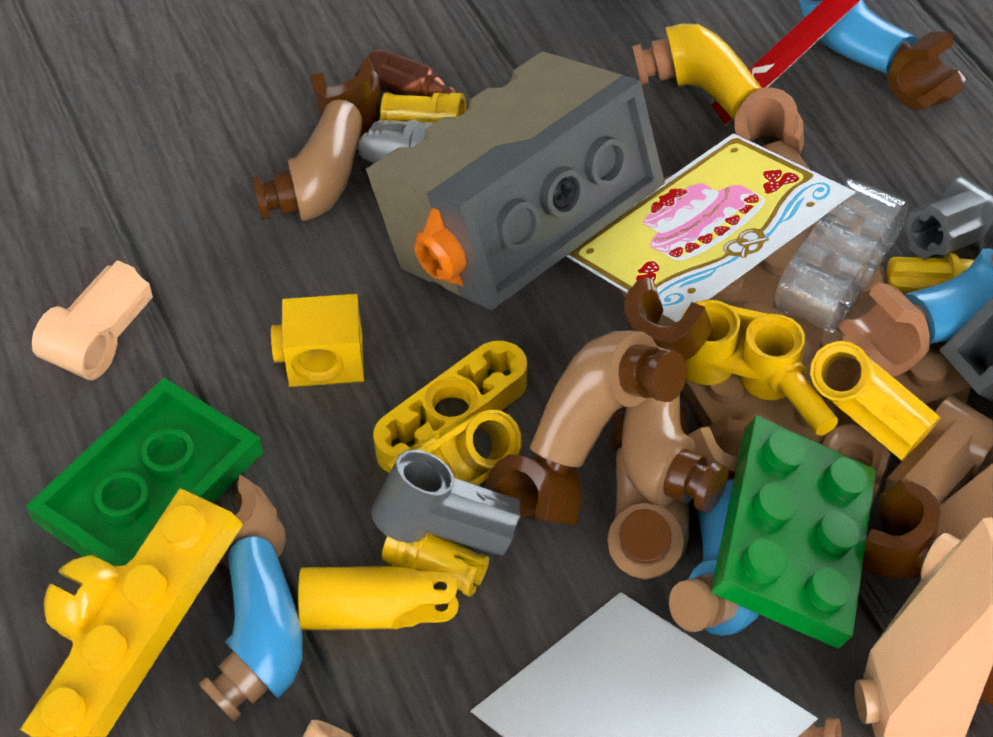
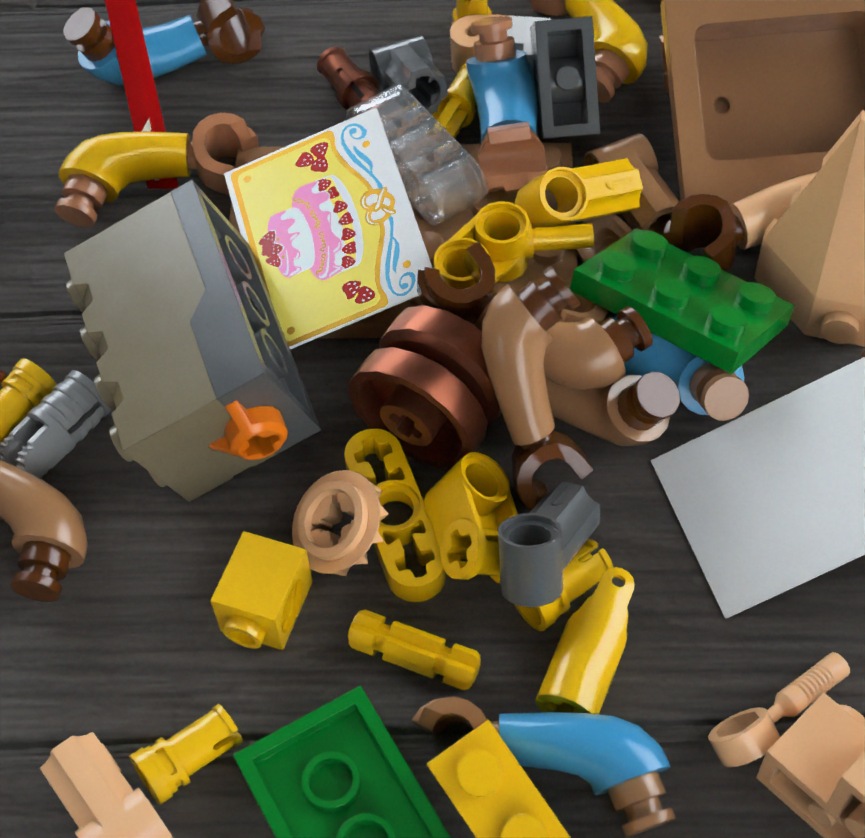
camera: 65 degrees left, 5 degrees up
(148, 347) = (173, 760): none -> yellow pin
(321, 472) = (414, 649): none -> yellow axle
(410, 364) = (323, 508): none -> light nougat gear
(547, 348) = (427, 386): none -> copper wheel
(928, 182) = (343, 73): none -> copper pin

